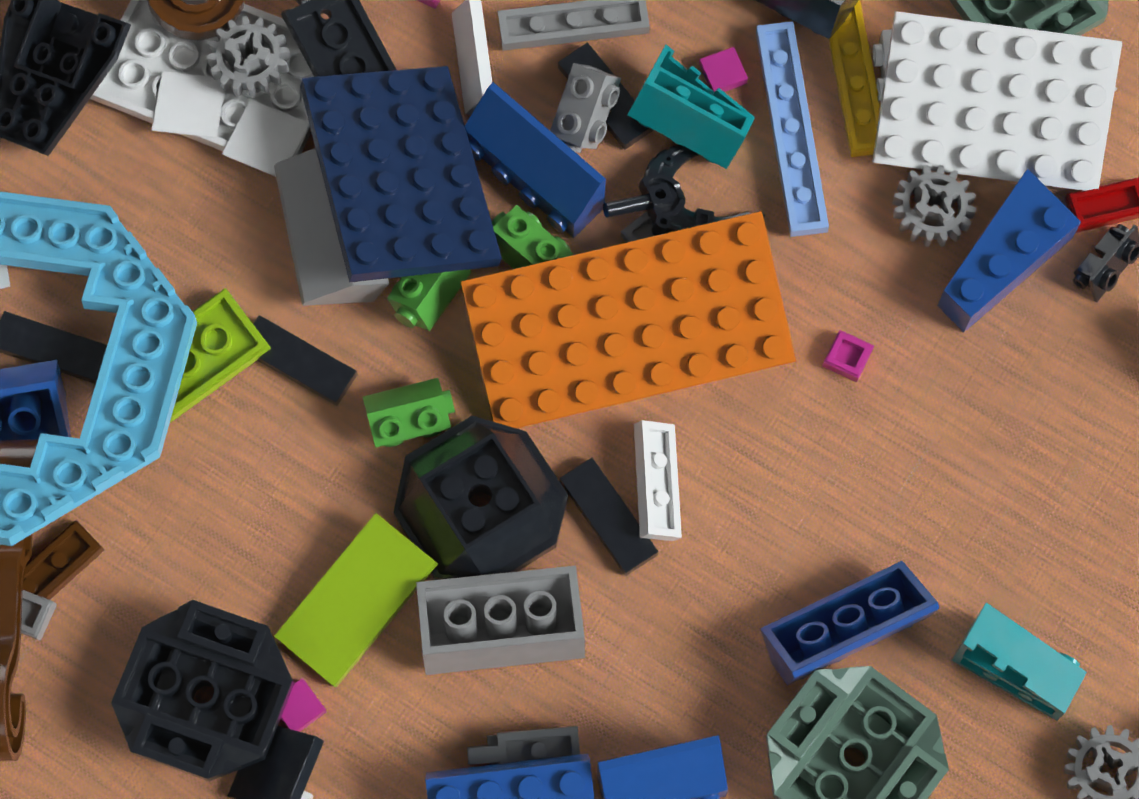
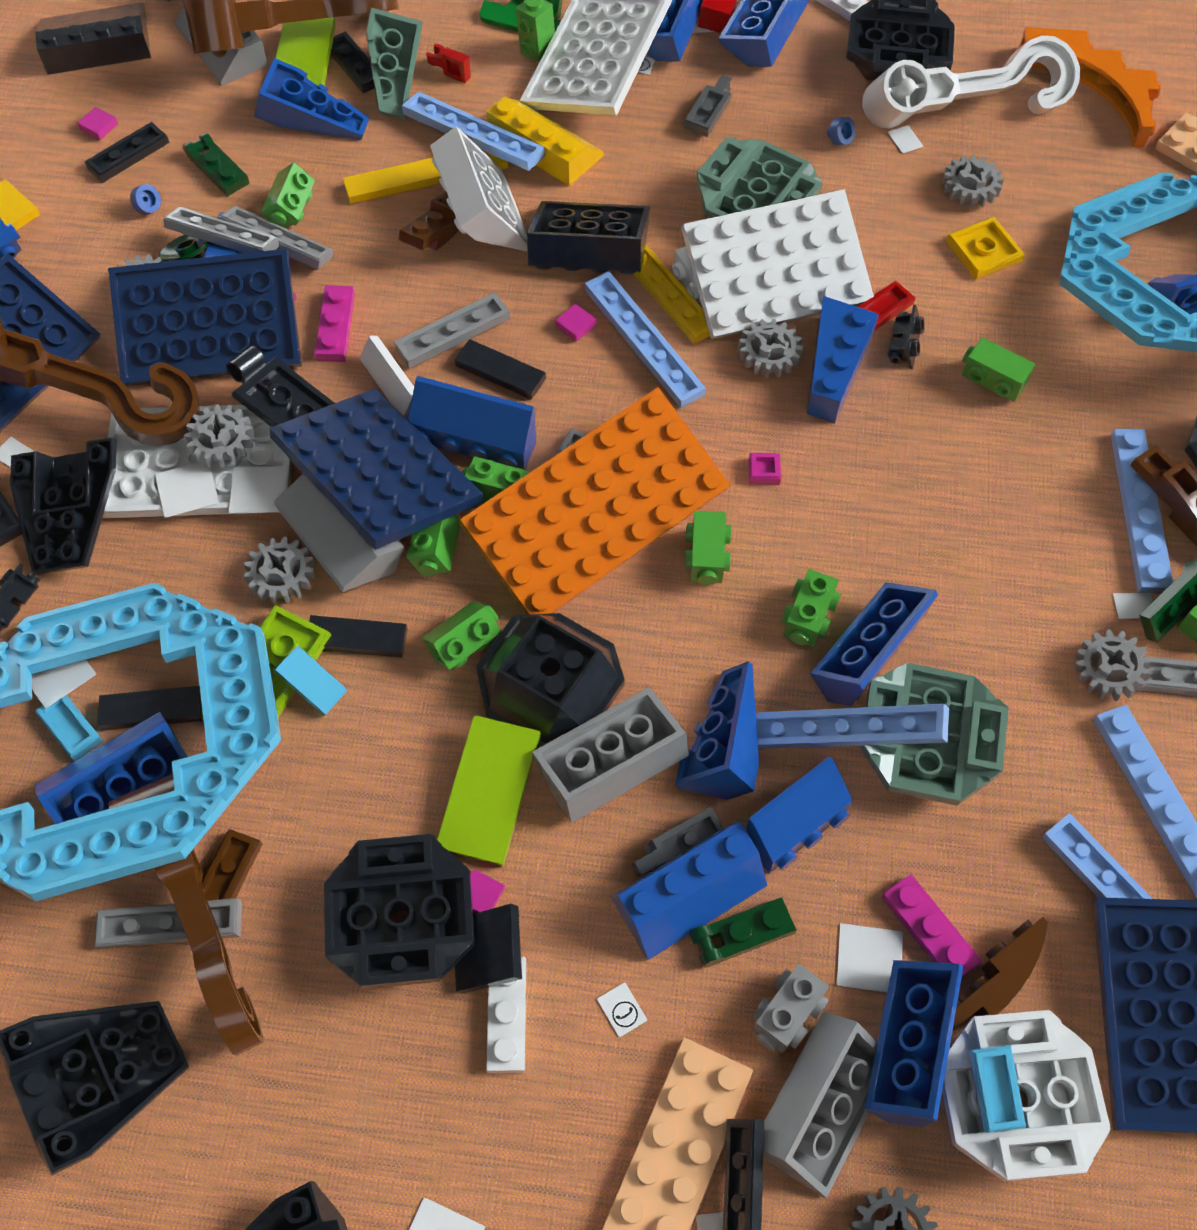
camera: 25 degrees left, 10 degrees down
(226, 393) = (310, 680): none -> medium azure tile
(265, 243) = (272, 581): none -> light grey gear
(585, 107) = (491, 369): light grey brick -> none
(608, 516) = (652, 647): black tile -> none
(627, 670) = (726, 748): none -> blue wedge
(657, 481) = (675, 606): white plate -> none
(663, 196) = (573, 412): black bar -> none
(690, 111) = (569, 351): teal wedge -> none
(722, 436) = (707, 554): none -> bright green brick
(757, 711) = (853, 726): none -> light blue plate
(795, 560) = (808, 615): none -> bright green brick
(1019, 663) = (1005, 617): teal wedge -> none

